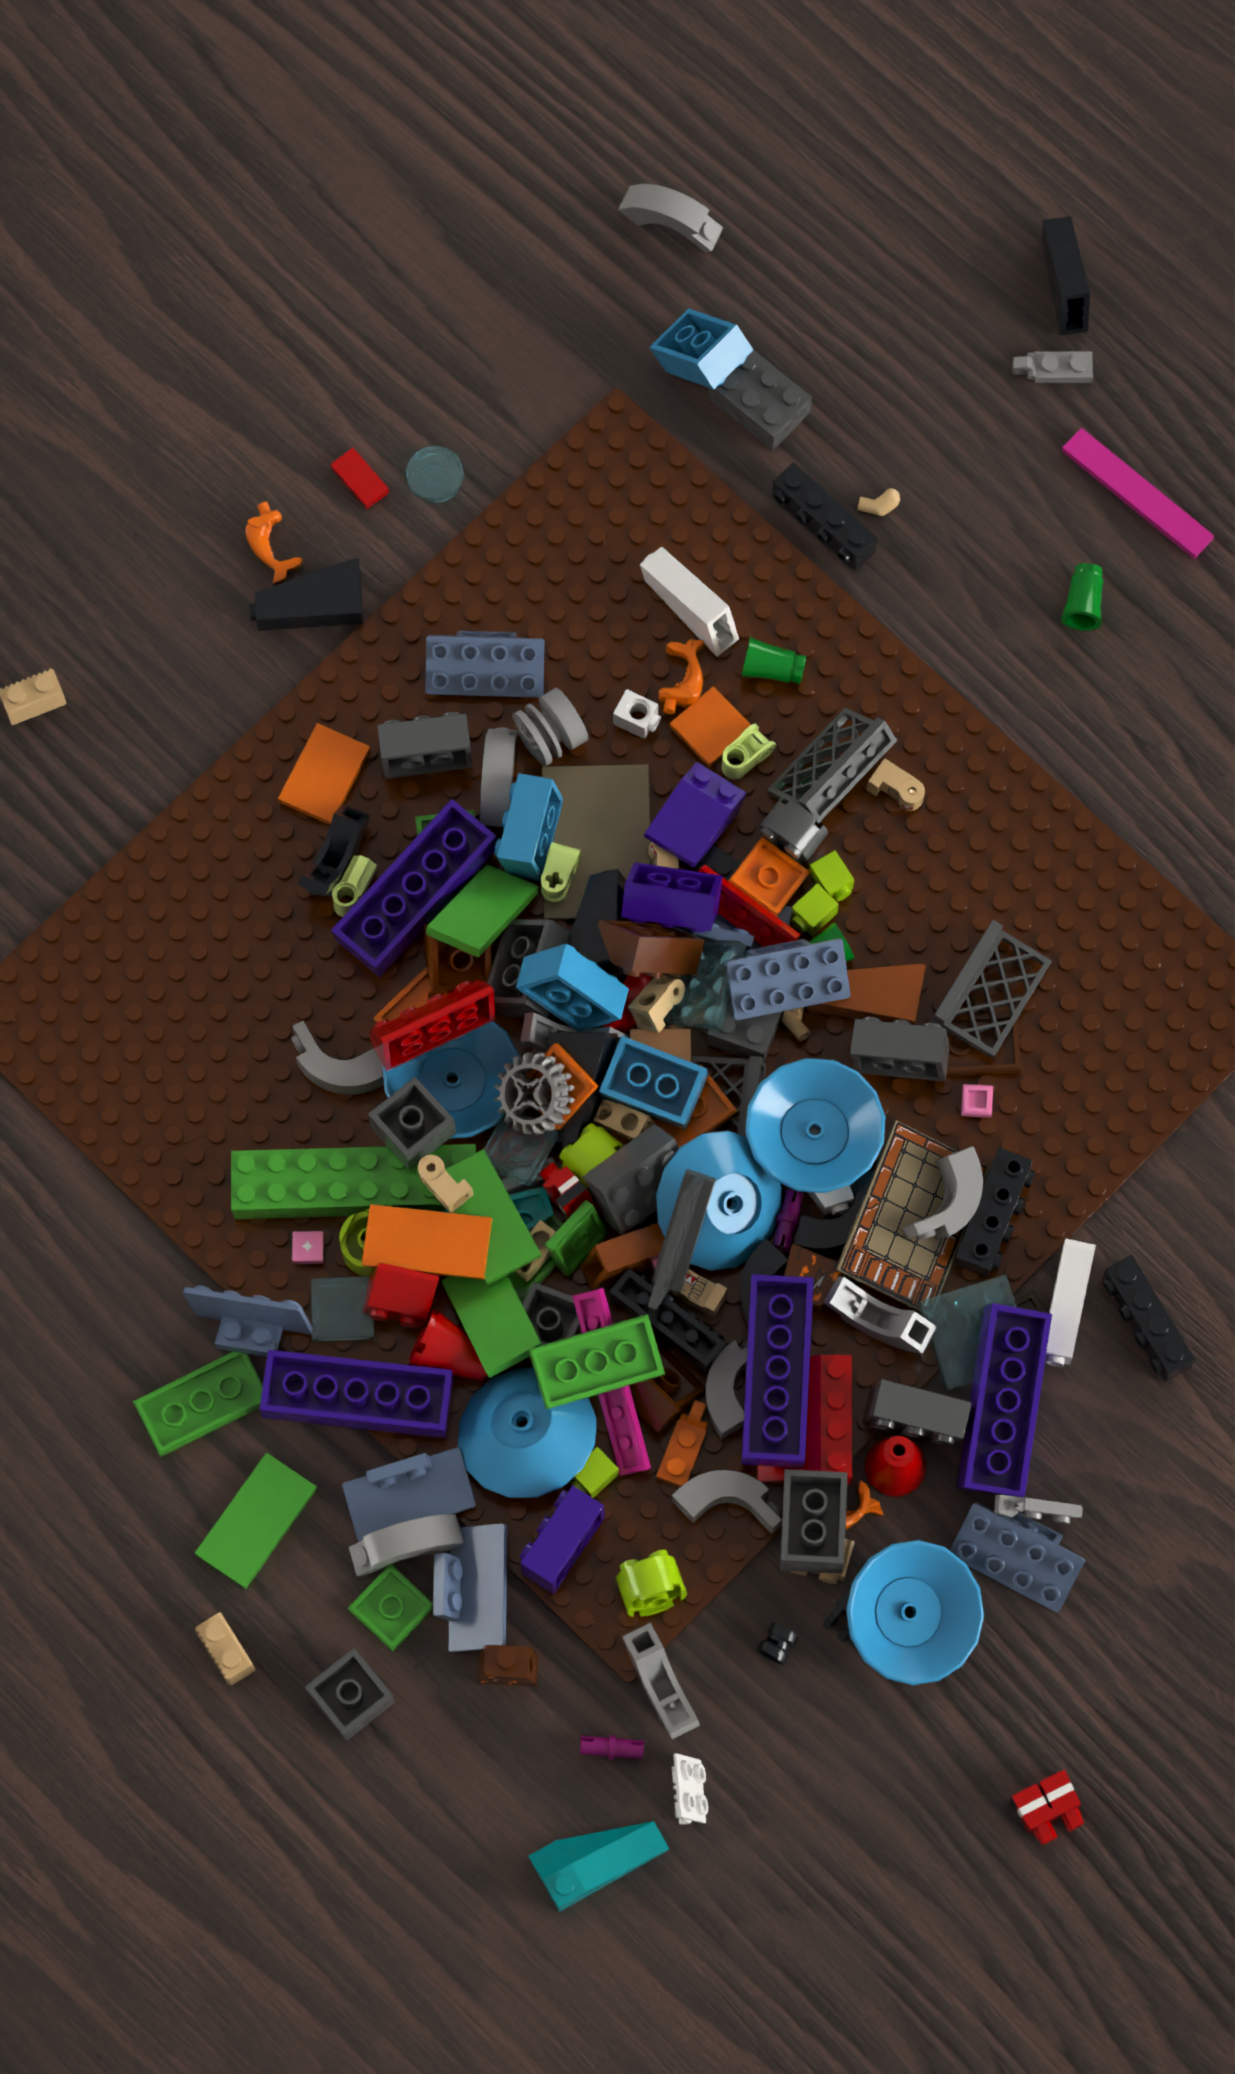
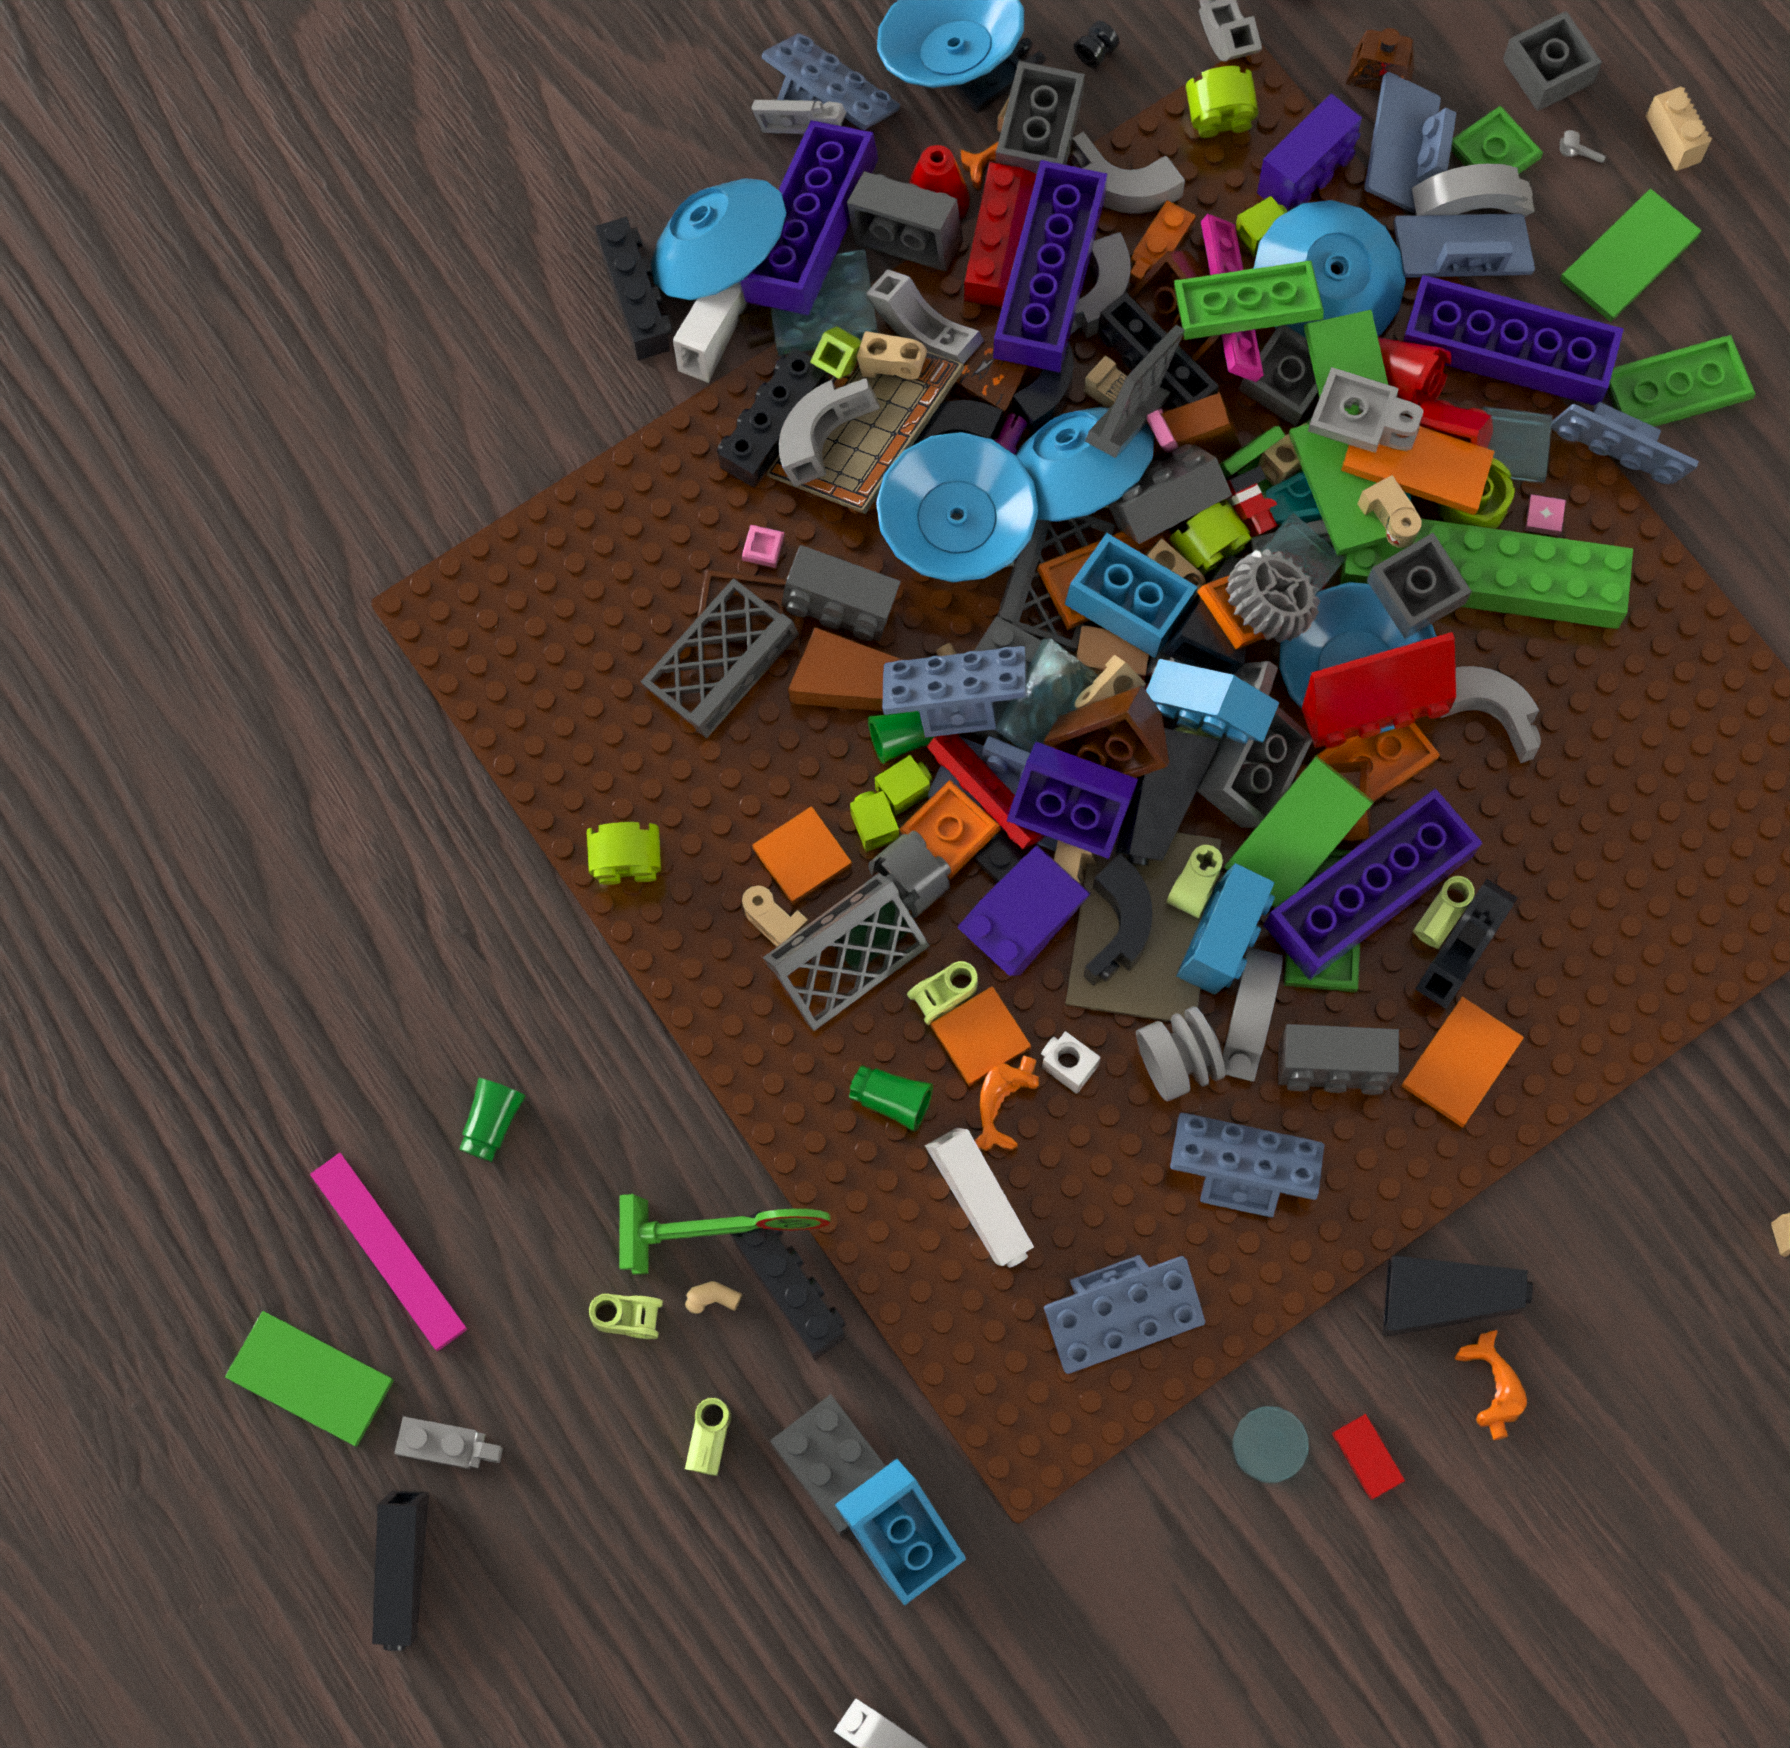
camera: 170 degrees left, 0 degrees up
(322, 1622) = (1571, 147): none -> light grey hand
(466, 1262) = (1379, 417): none -> light grey plate
(564, 541) = (1123, 1310): none -> sand blue bracket
(609, 844) = (1129, 897): none -> black arch
(651, 1226) = (1162, 431): none -> bright pink tile
(859, 403) = (708, 1441): none -> yellowish green piece
(885, 844) = (802, 855): none -> orange tile
(901, 1269) = (890, 356): none -> tan leg
(940, 475) = (629, 1315): none -> yellowish green piece
(946, 531) = (638, 1233): none -> bright green piece
(949, 1266) = (837, 352): none -> lime brick
(1029, 808) = (623, 851): none -> lime brick
(1062, 1359) = (717, 238): none -> dark azure dish
(1171, 393) = (309, 1378): none -> bright green tile

